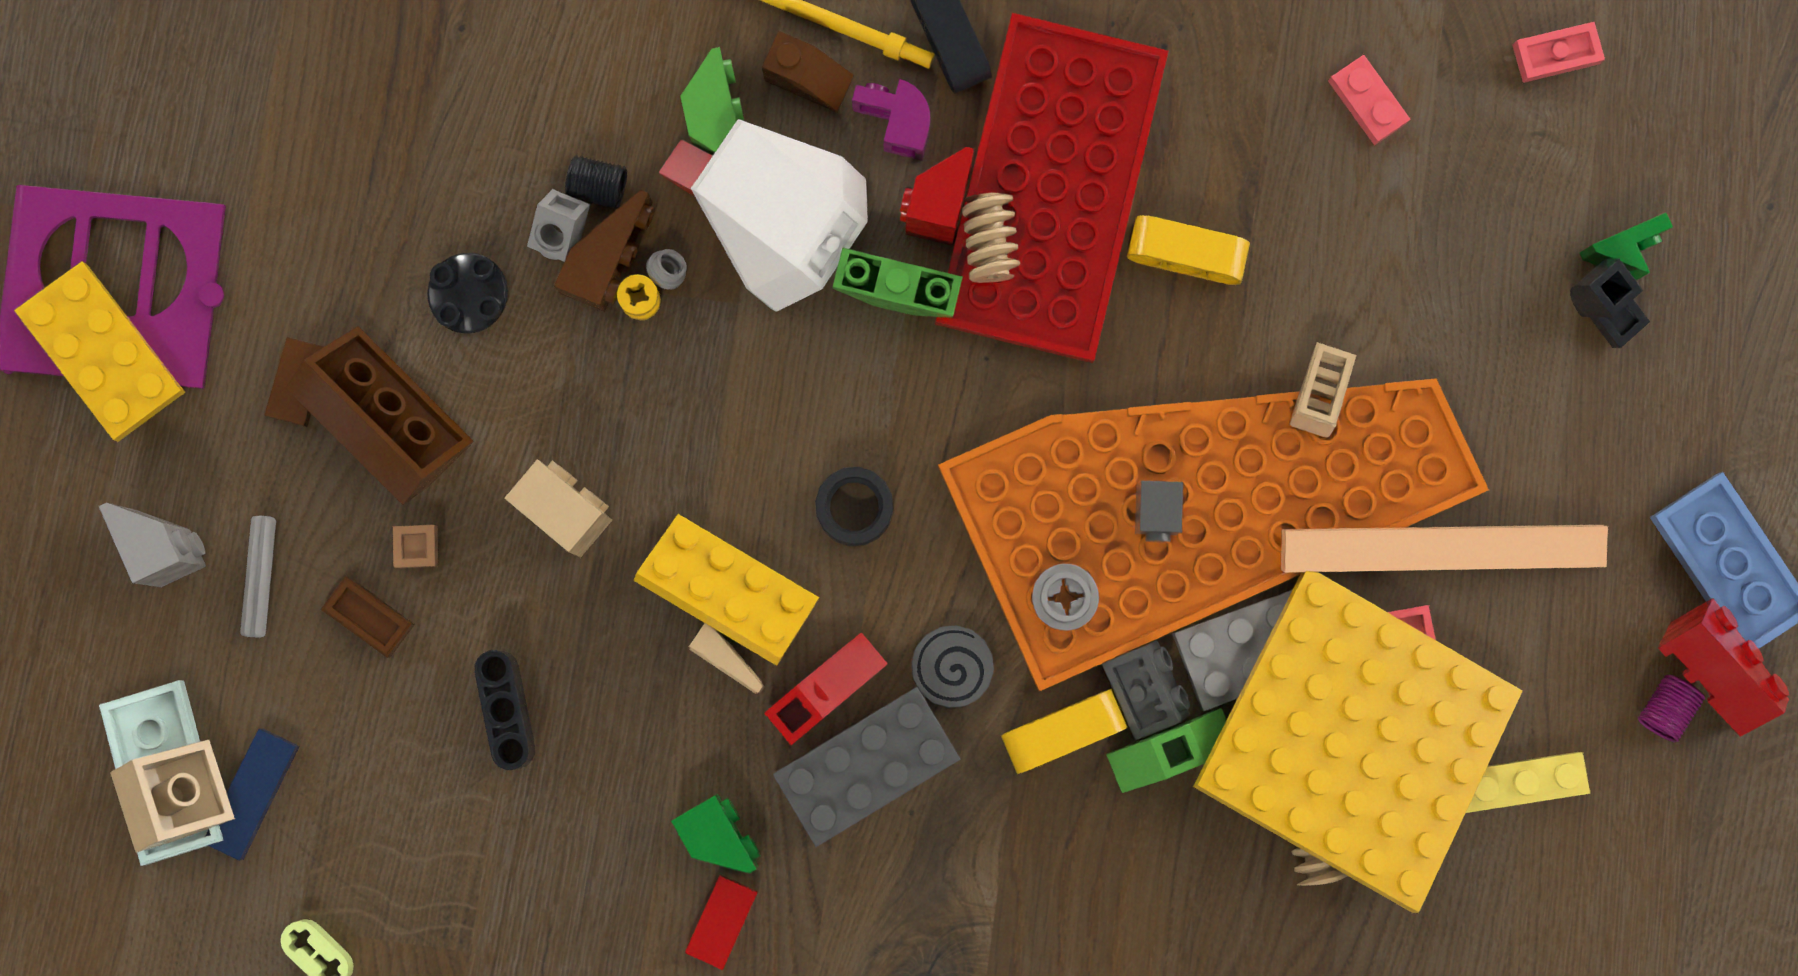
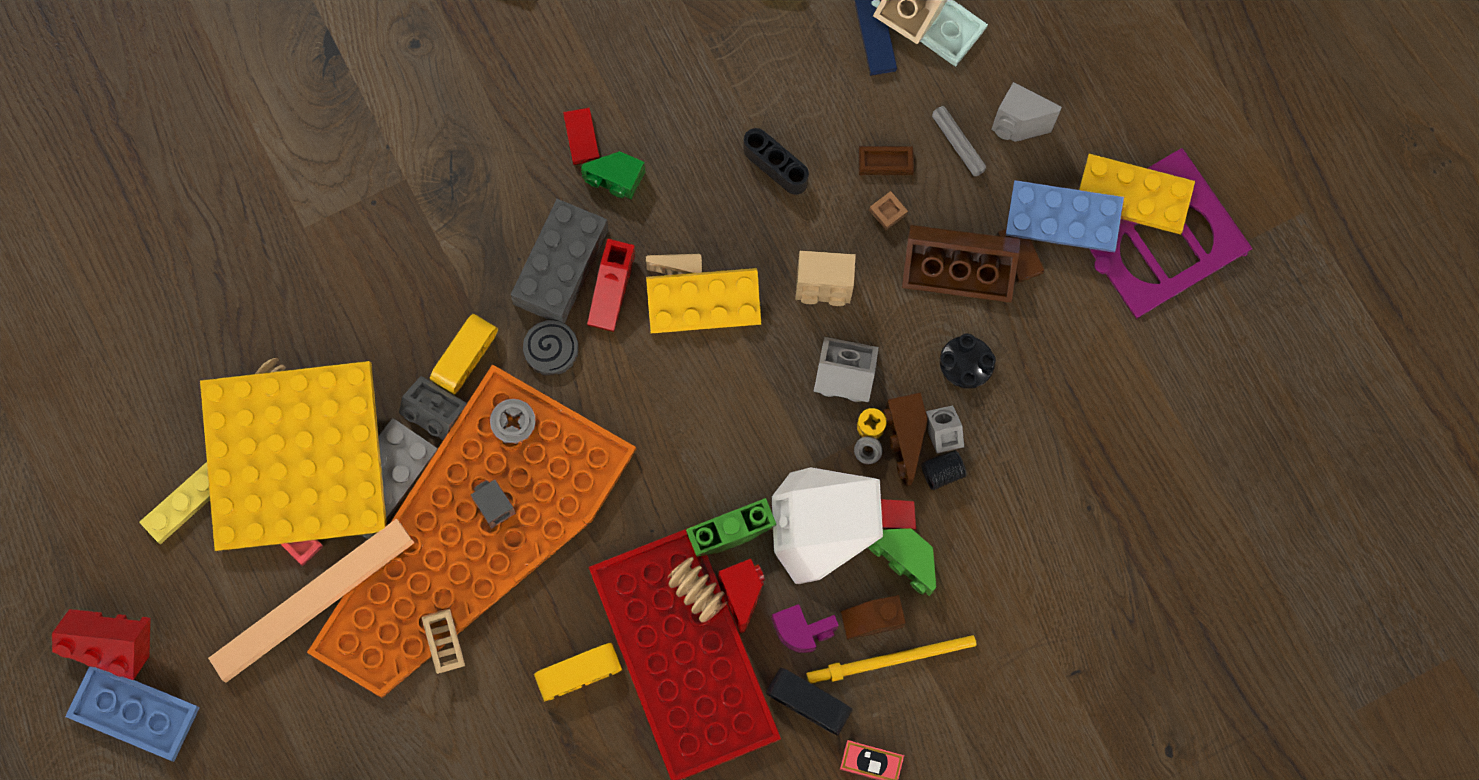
camera: 145 degrees right, 10 degrees down
(208, 379) = (1064, 216): none -> medium blue plate
(617, 383) = (846, 369): none -> light grey slope
(864, 477) = (671, 373): black tyre -> none
(1166, 752) = (395, 380): bright green slope -> none
(1671, 708) = (120, 598): magenta piece -> none

